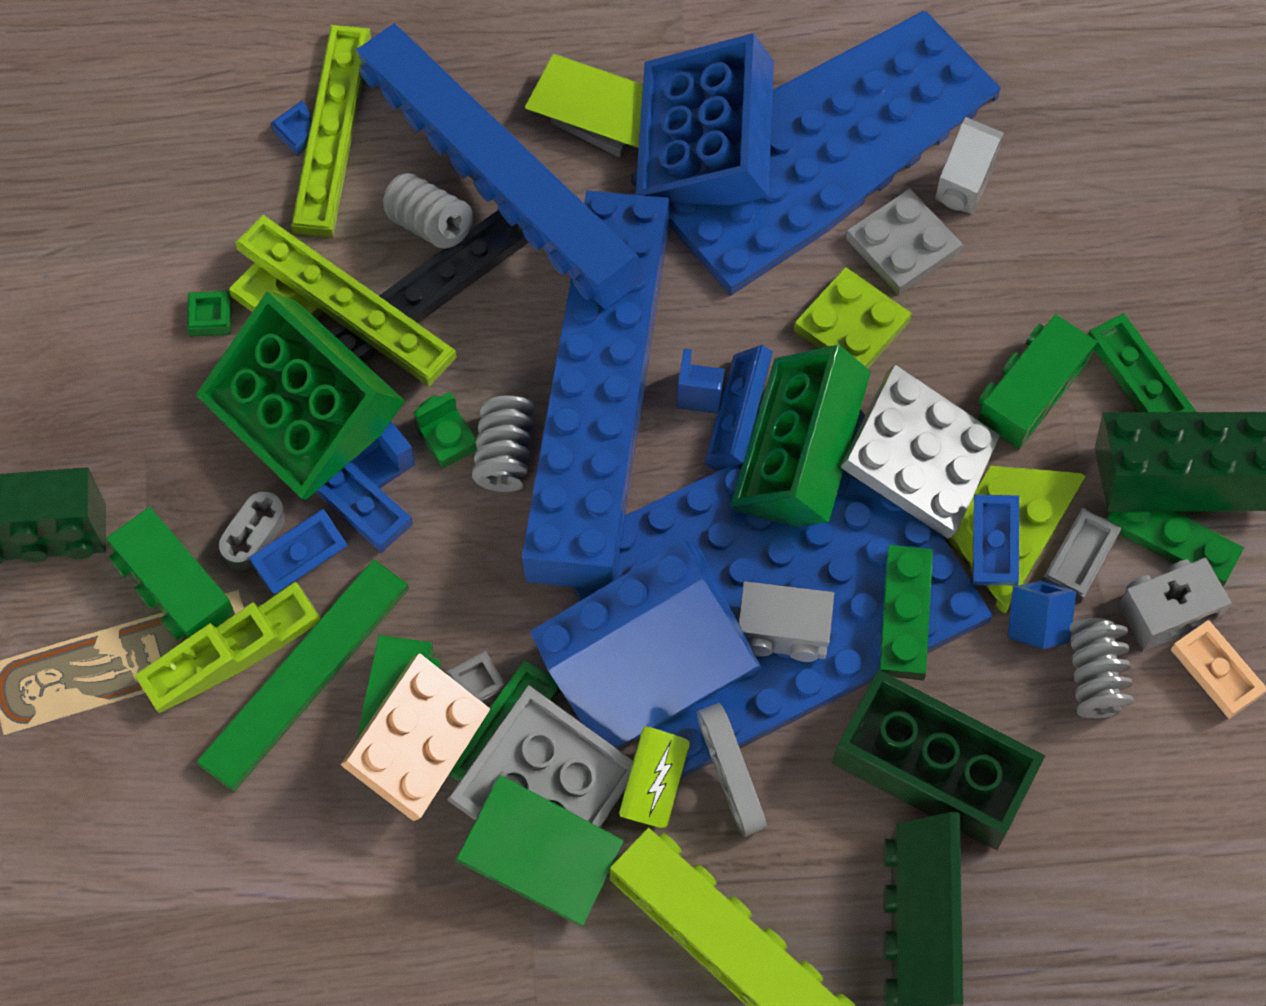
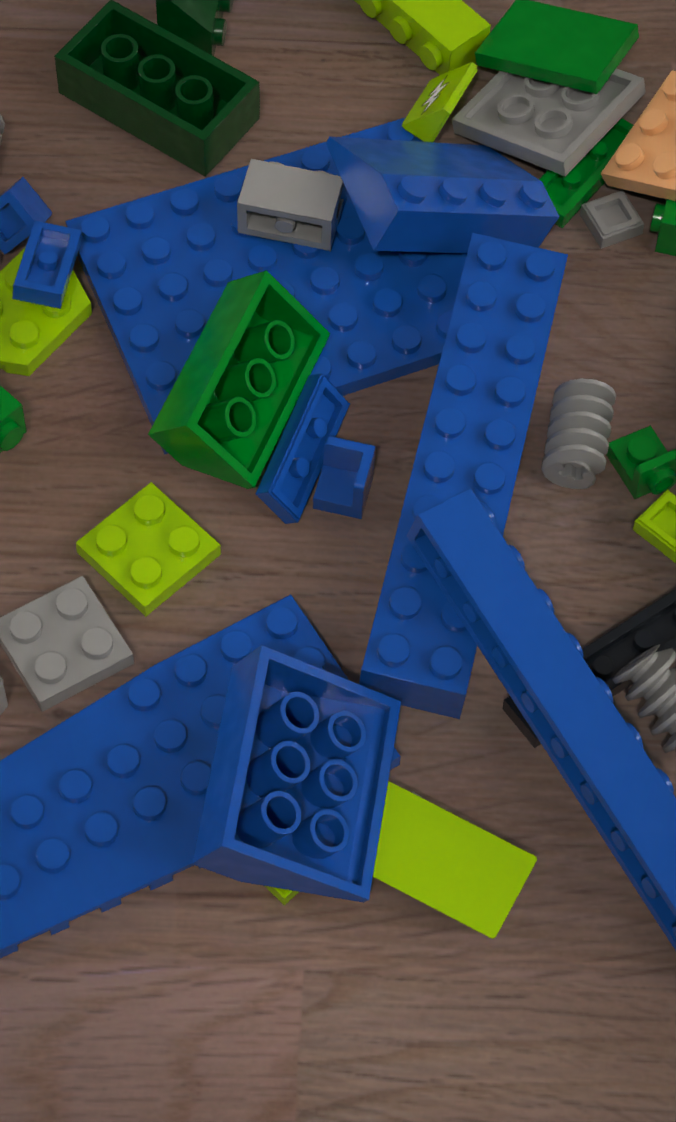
camera: 175 degrees left, 5 degrees down
(731, 770) = (363, 97): light grey beam -> none
(906, 612) = (159, 215): green plate -> none
(920, 451) = (107, 364): plate -> none

